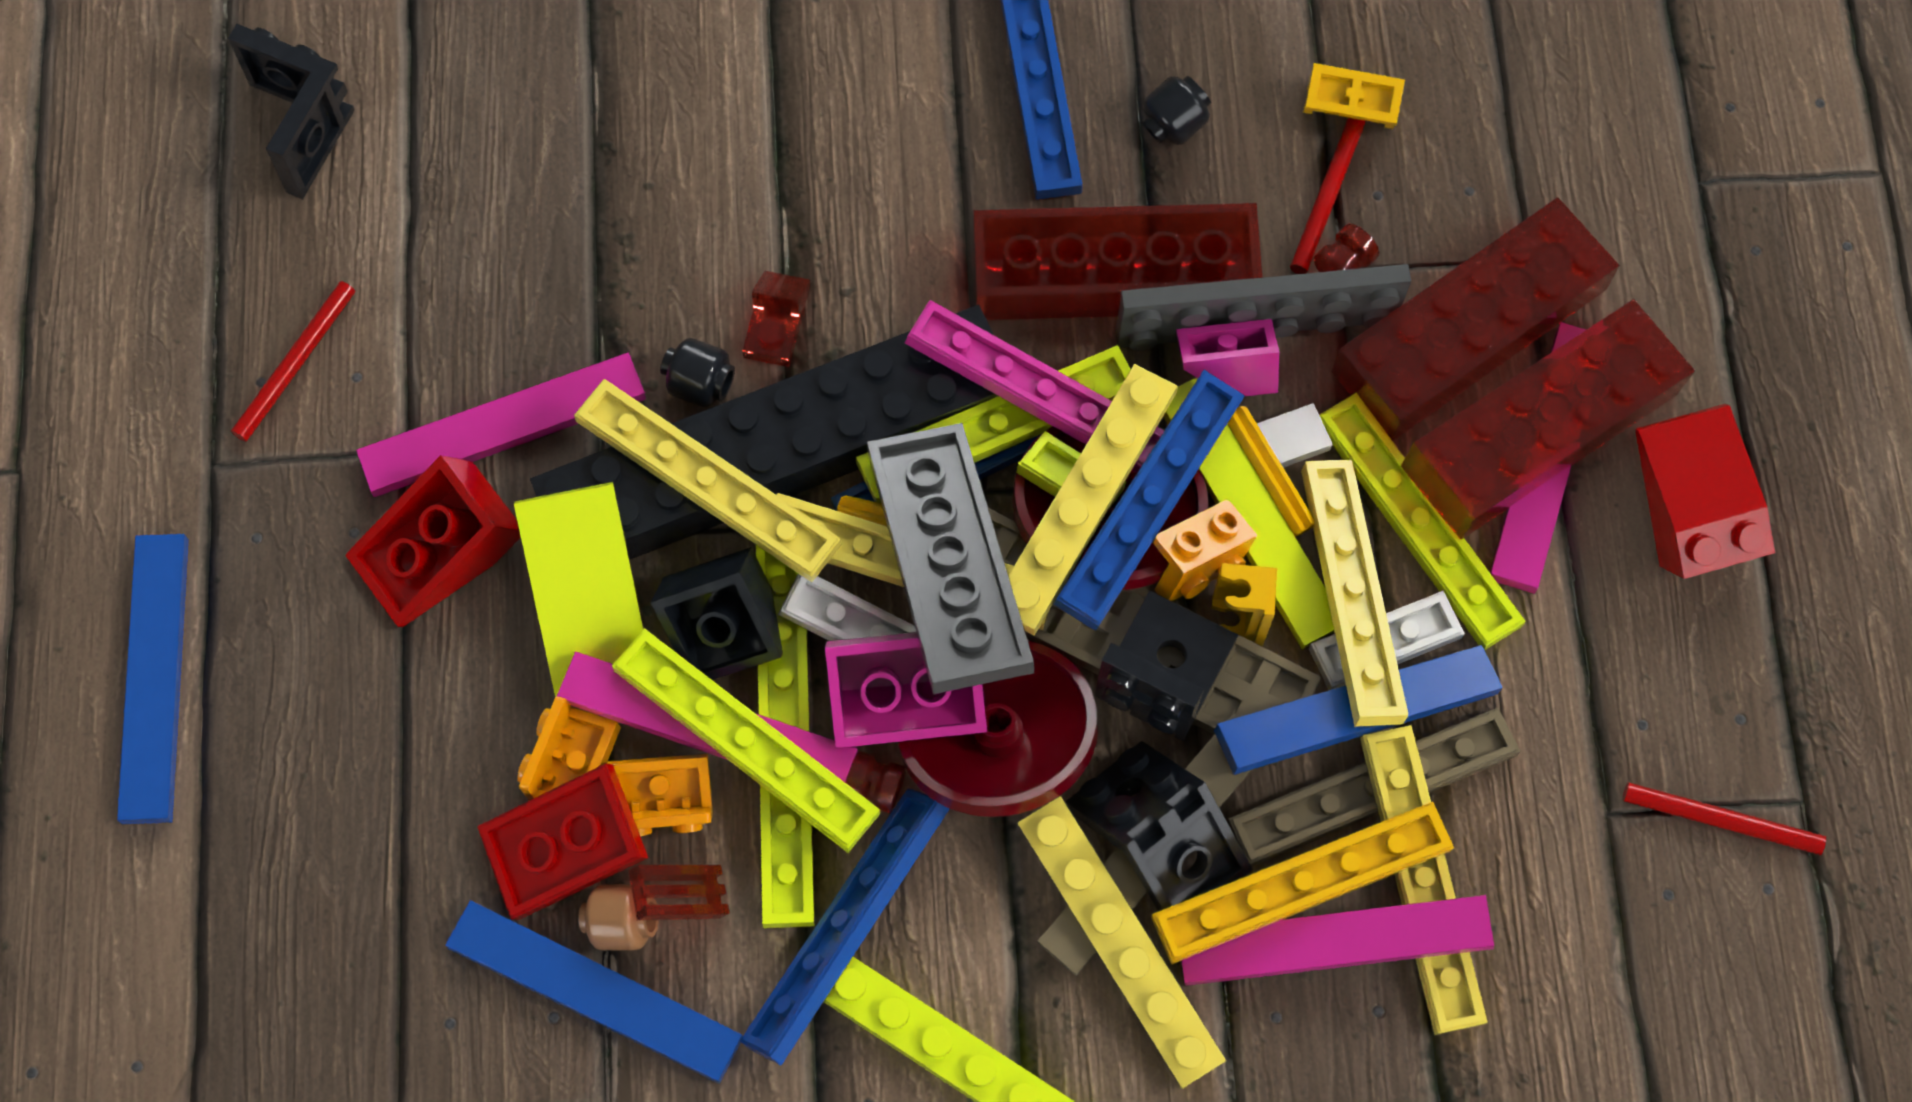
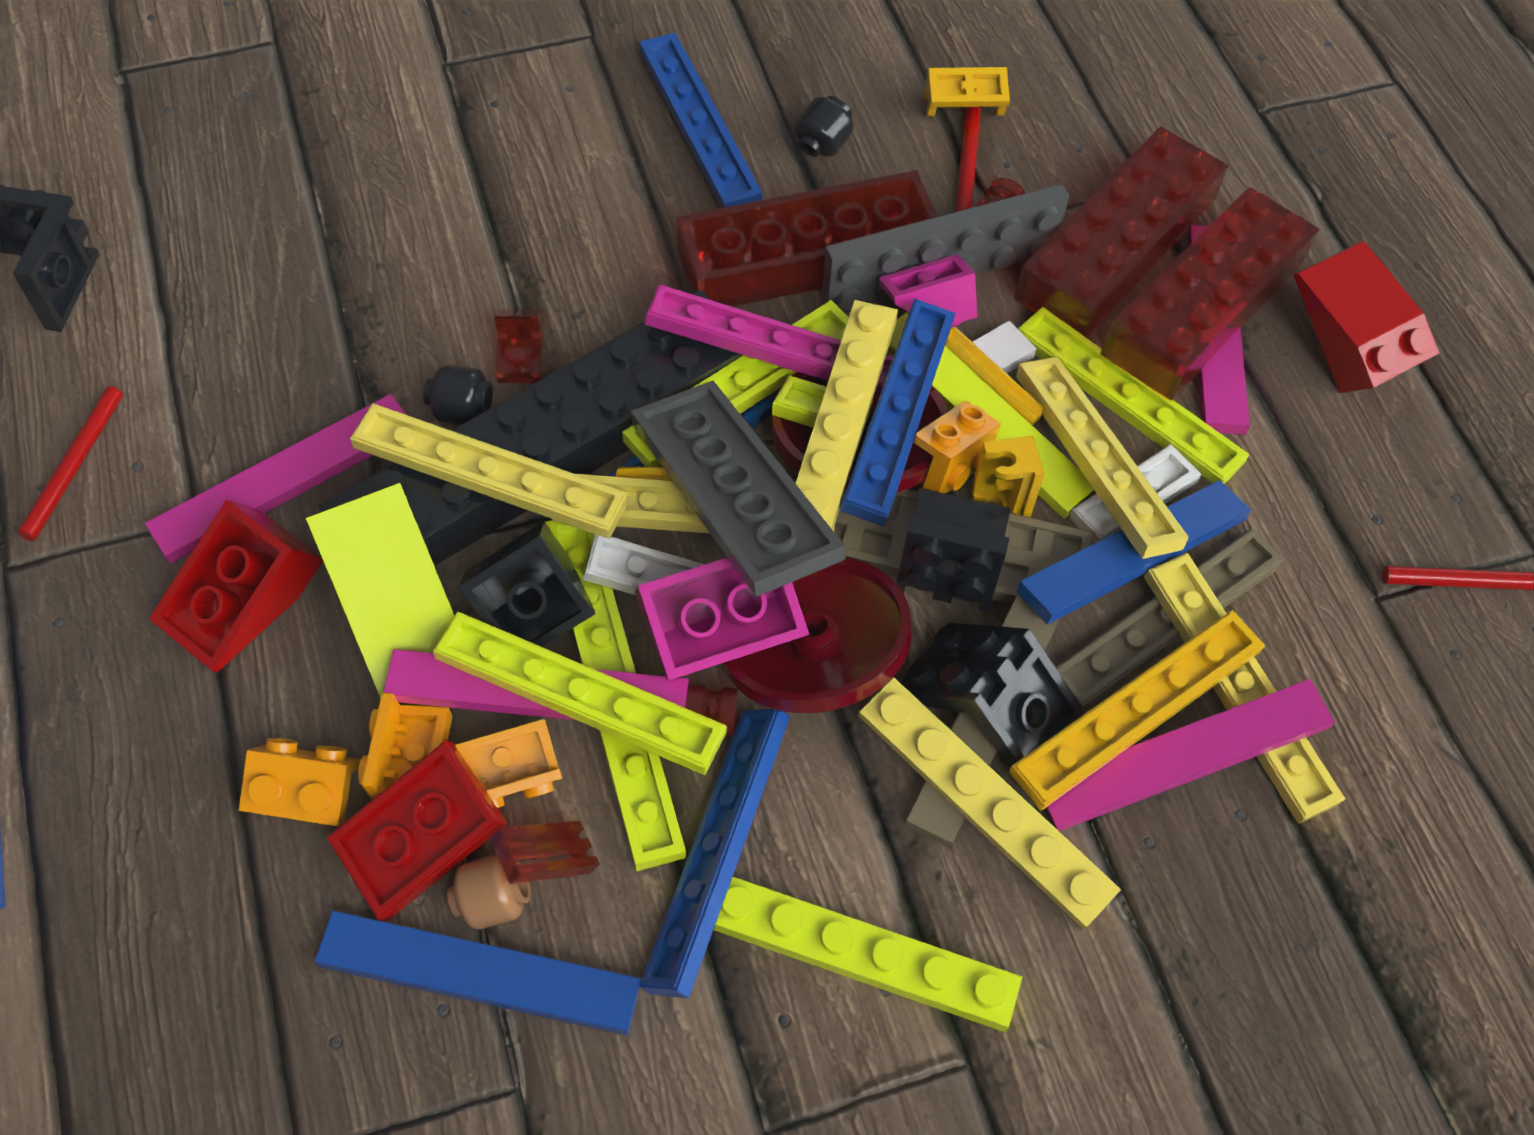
camera: 15 degrees left, 10 degrees down
(461, 762) = (297, 782): none -> light orange bracket

